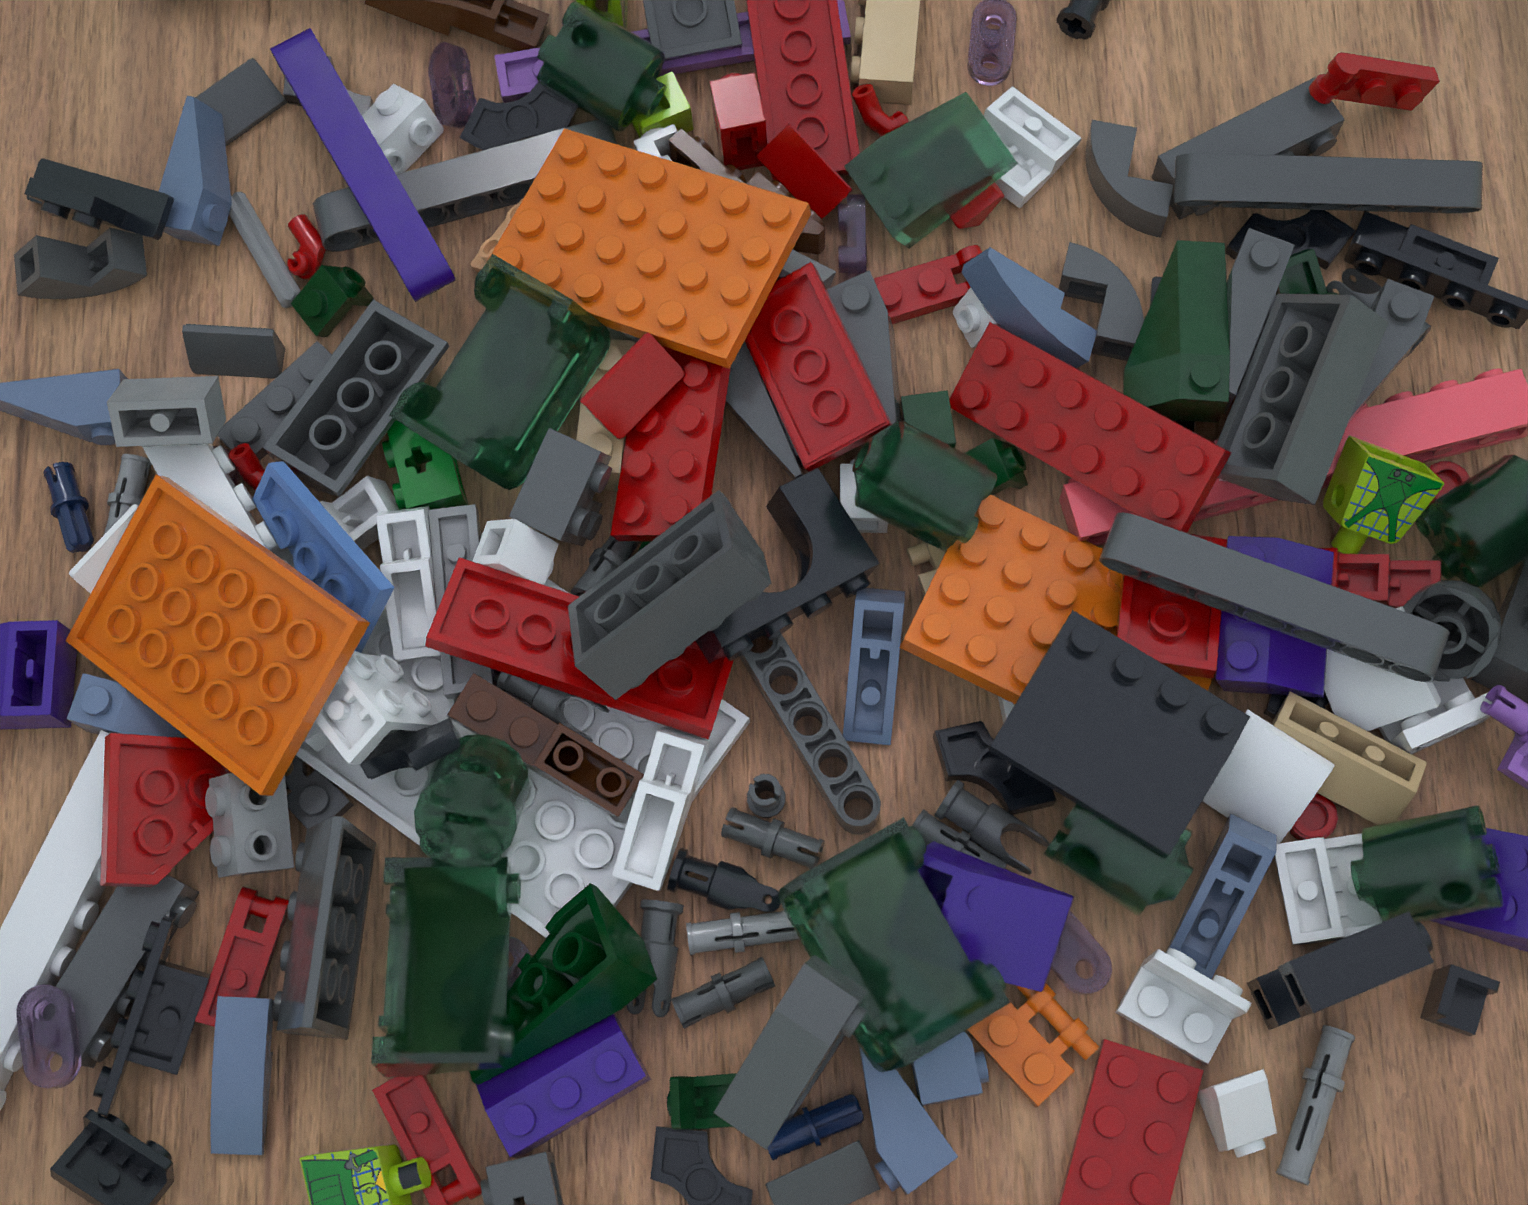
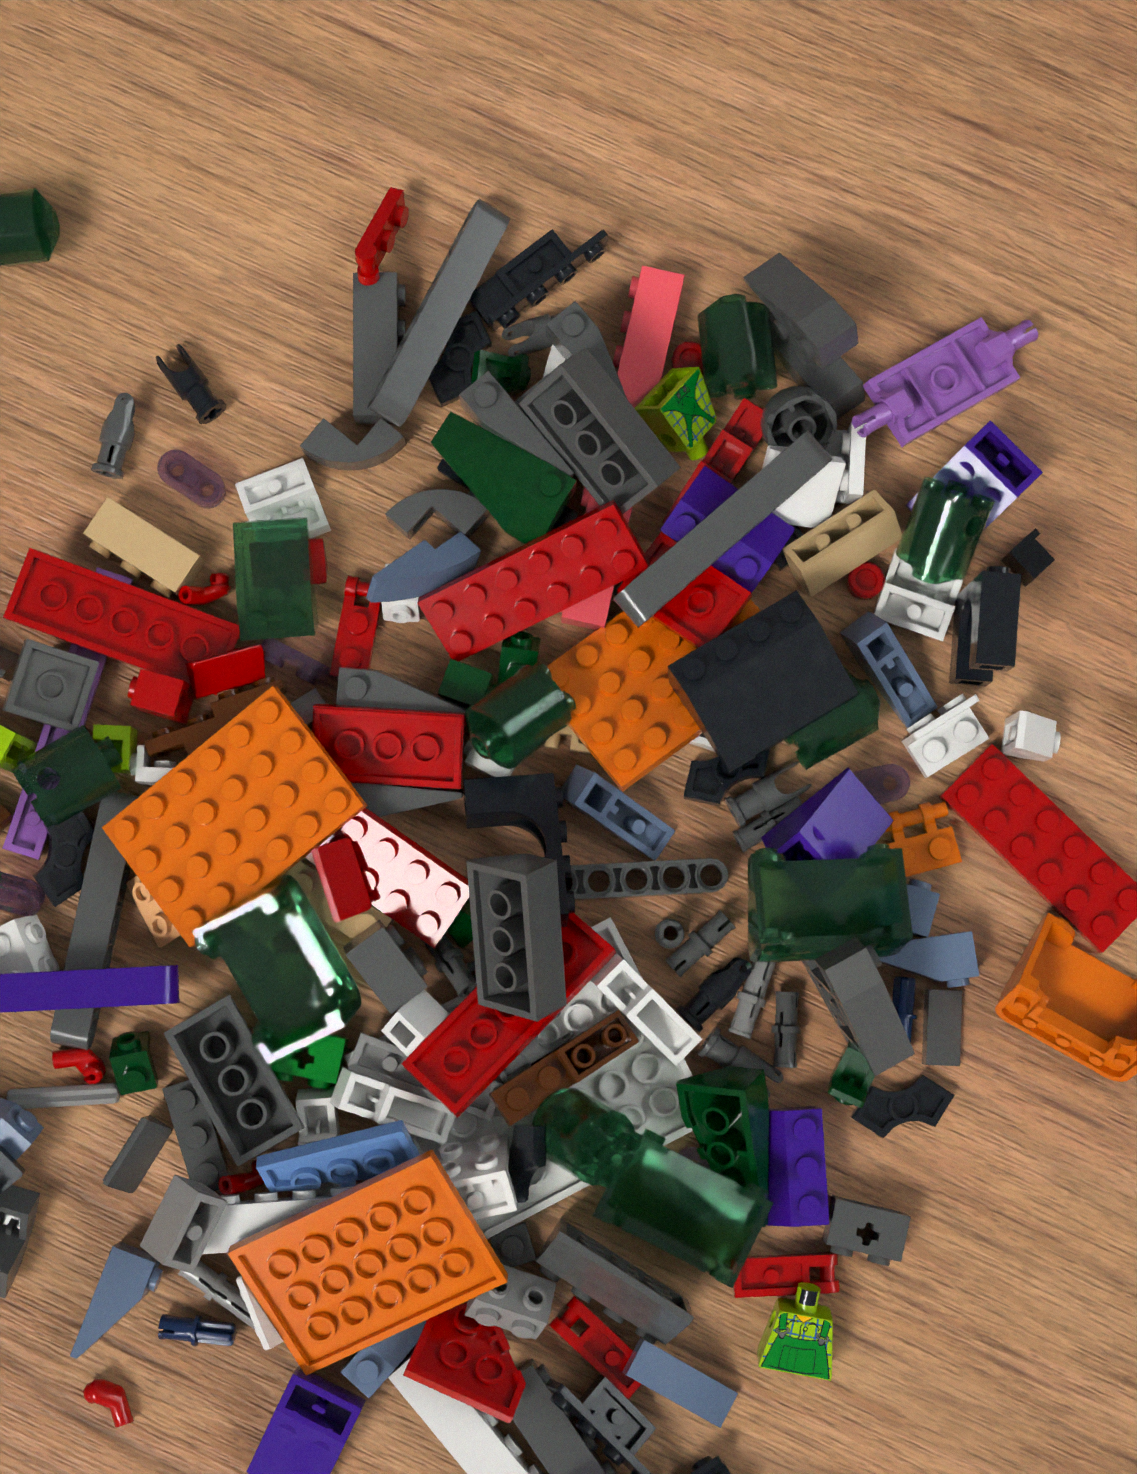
camera: 70 degrees left, 10 degrees up
(1268, 778) = (833, 593): white slope -> none
(1321, 1086) = (1050, 687): light grey pin -> none

